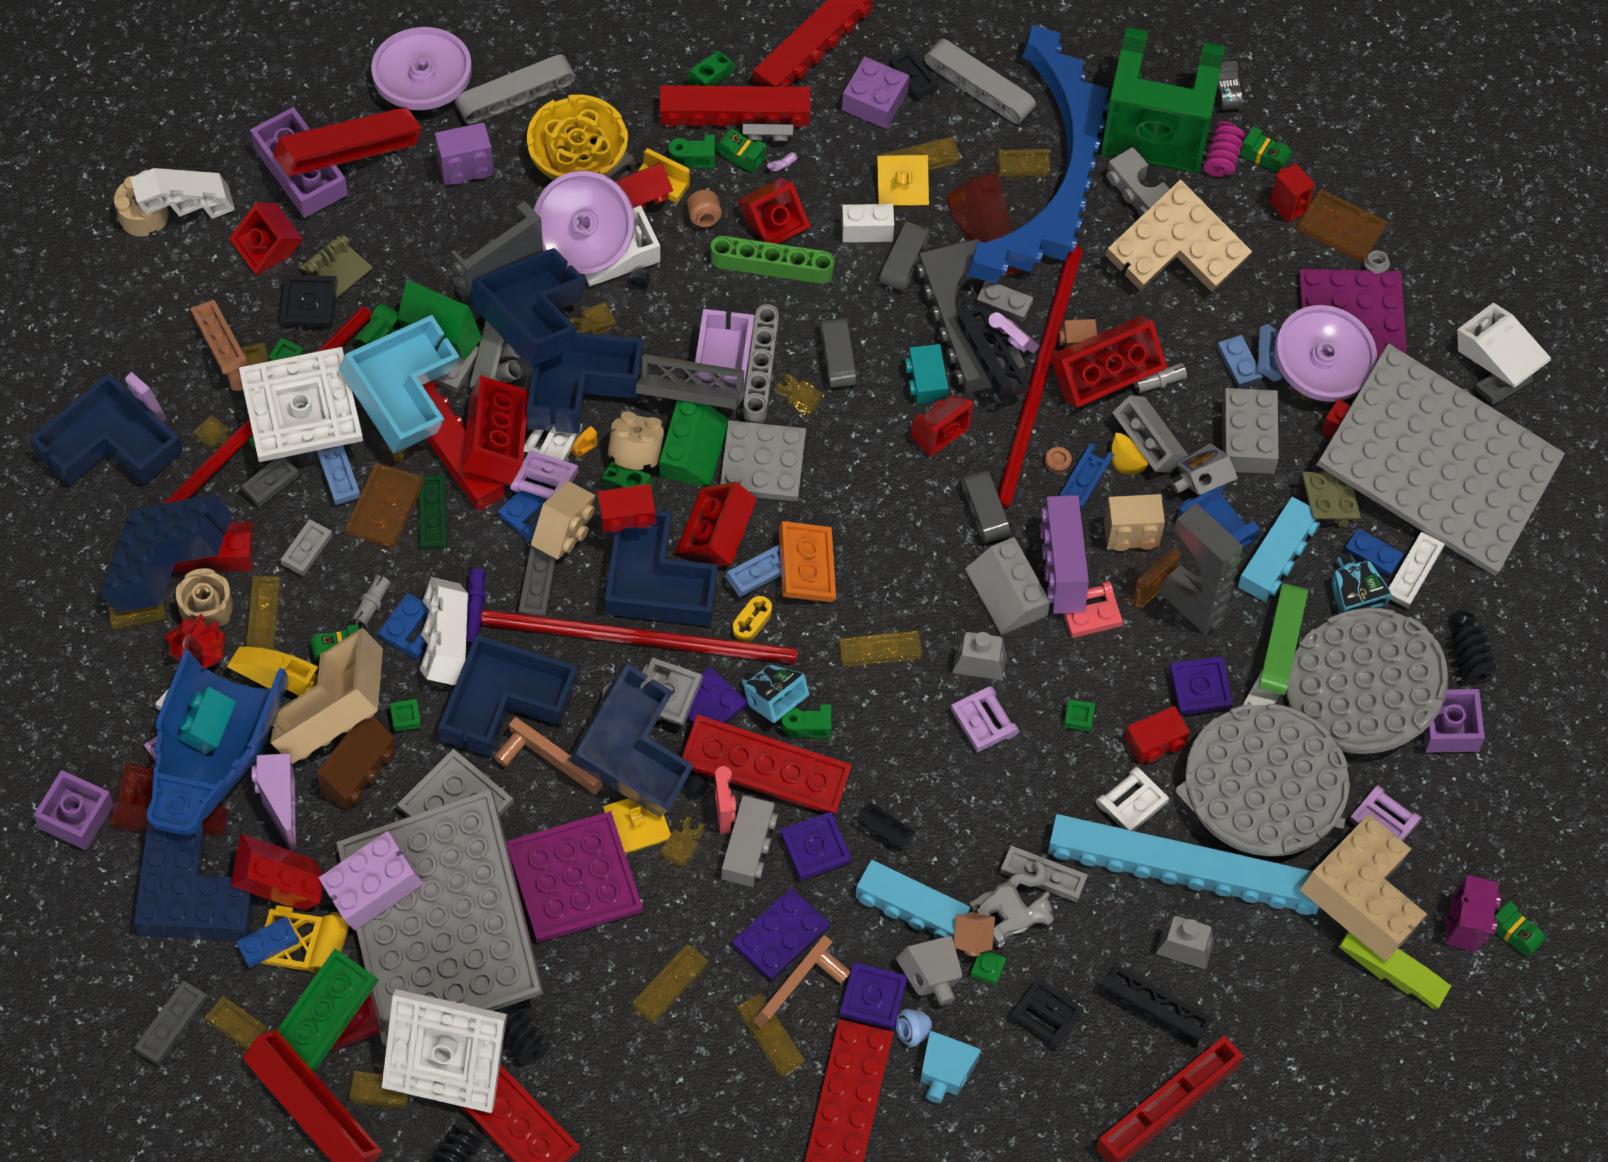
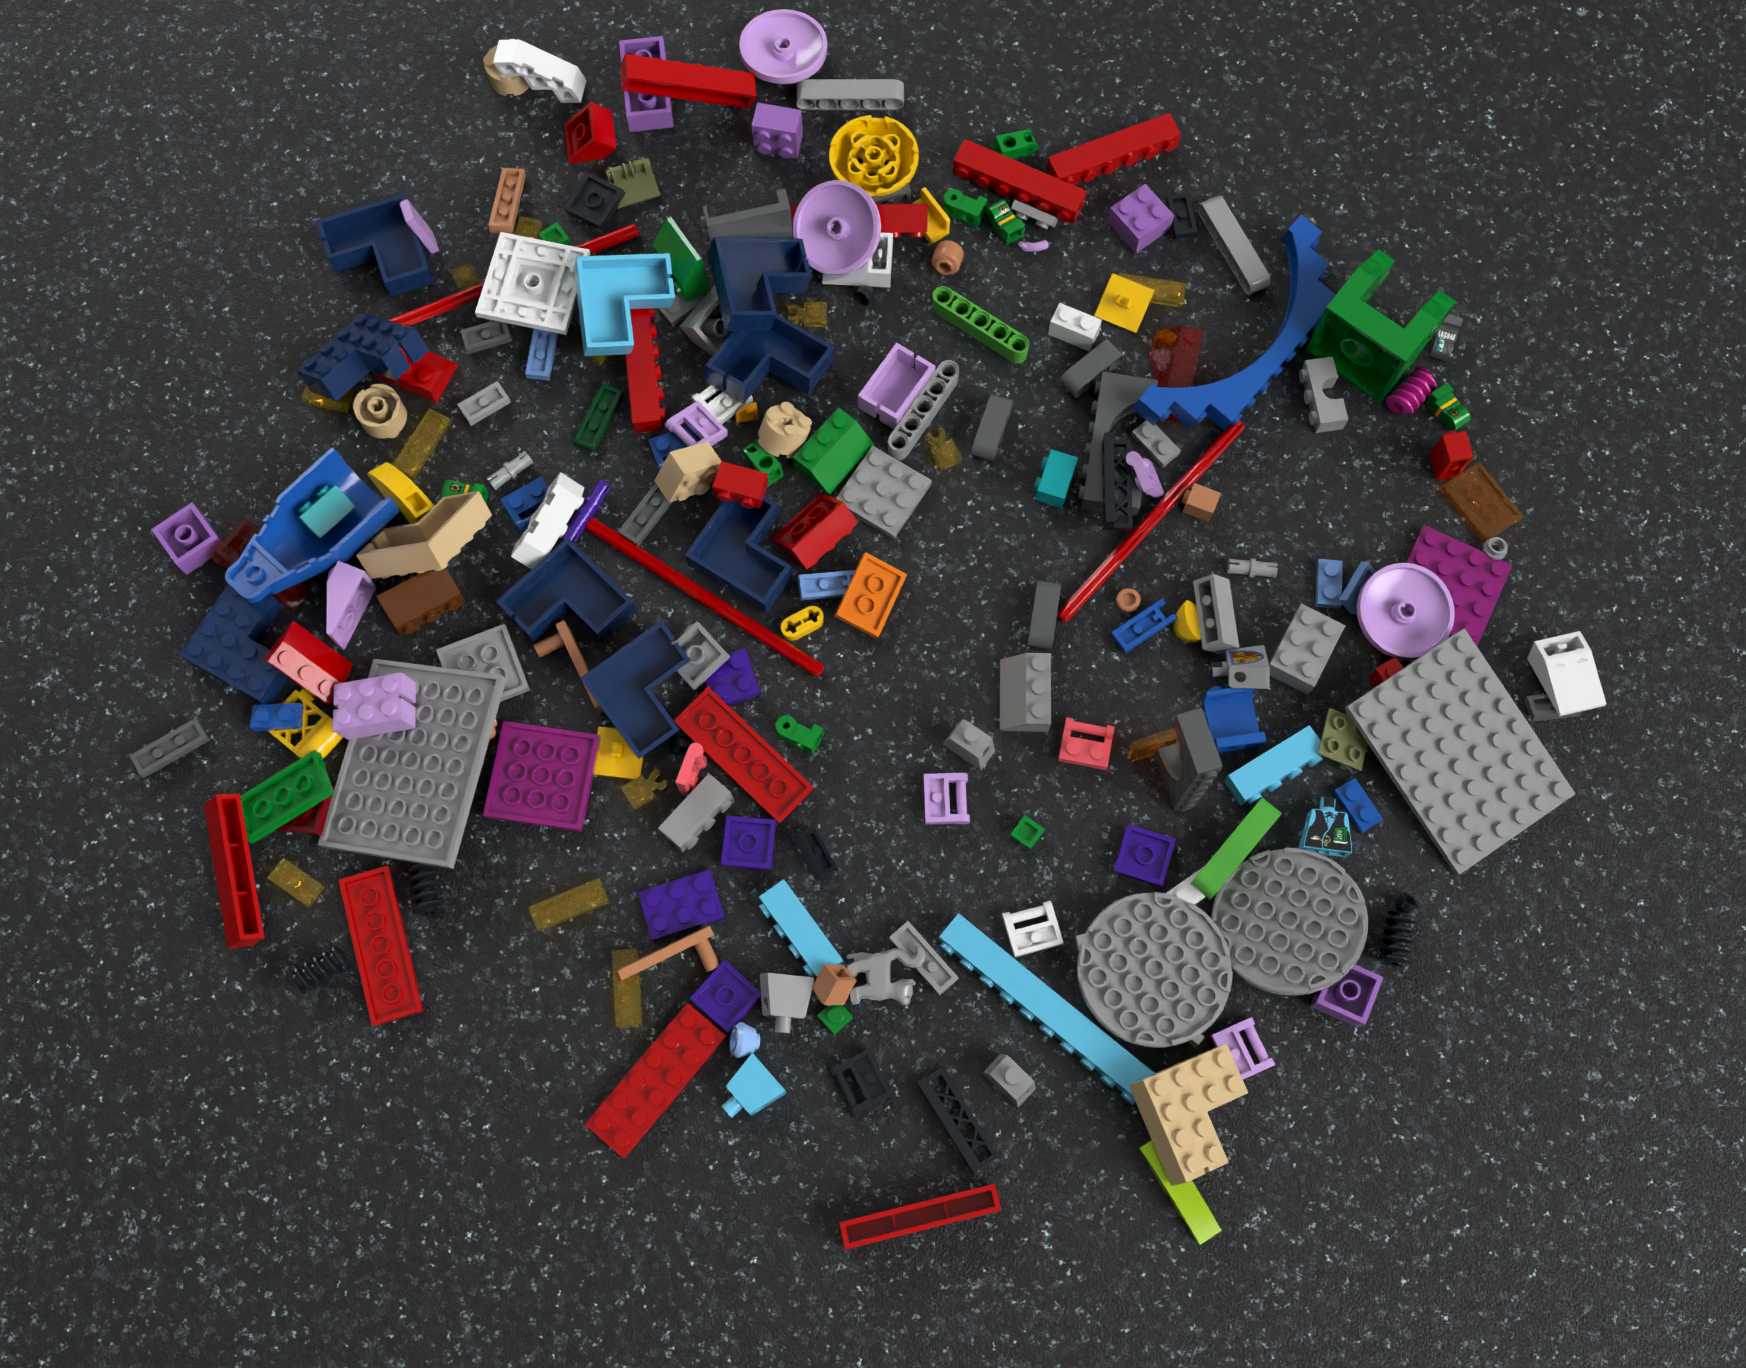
camera: 30 degrees right, 10 degrees up
(201, 639) = (354, 444): red hair -> none
(235, 1022) = (218, 772): clear yellow plate -> none
(382, 323) = (639, 244): green piece -> none
(384, 505) = (563, 395): clear orange tile -> none
(405, 715) = (484, 577): green plate -> none
(444, 1050) = (345, 879): white piece -> none
(495, 430) = (674, 372): red brick -> none
(688, 390) = (852, 406): dark grey fence -> none
(774, 212) = (1003, 285): red slope -> none
(775, 691) = (783, 695): medium azure torso -> none
(880, 648) = (893, 696): clear yellow tile -> none
(942, 424) = (1044, 527): red slope -> none
(1024, 162) = (1234, 330): clear yellow plate -> none
(1064, 554) = (1083, 687): medium lavender brick -> none
(1108, 361) = (1213, 535): red brick -> none
(1134, 522) = (1160, 686): tan brick -> none
(1157, 735) = (1083, 882): red brick -> none
(1183, 229) = (1331, 443): tan piece -> none
(1415, 569) = (1385, 838): white plate -> none
(1472, 913) = (1273, 1179): magenta brick -> none
(1518, 930) = (1307, 1209): green leg -> none

